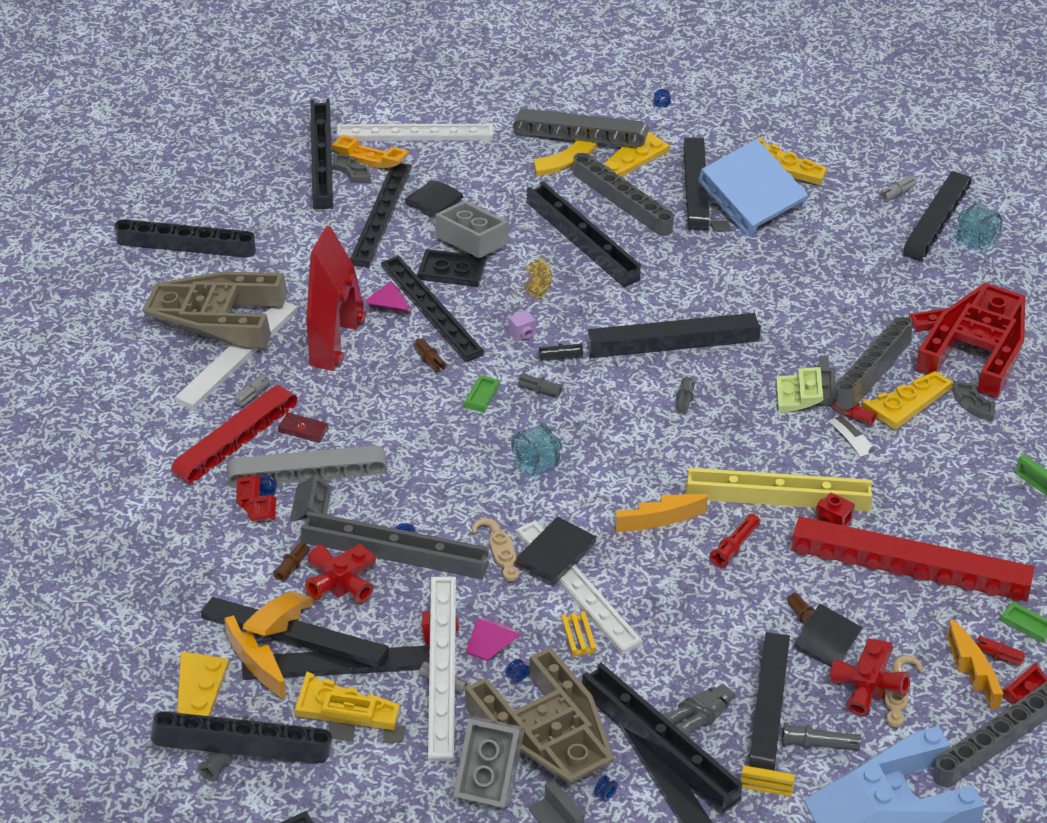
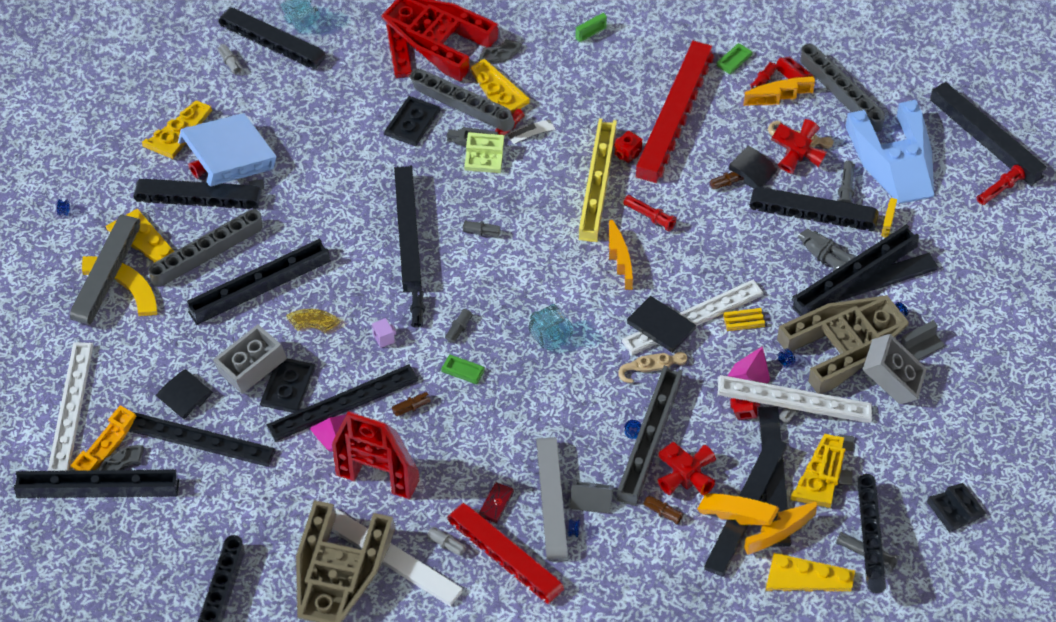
camera: 85 degrees left, 10 degrees up
(247, 496) = (601, 534): red tile -> none
(841, 333) = (412, 121): none -> black tile

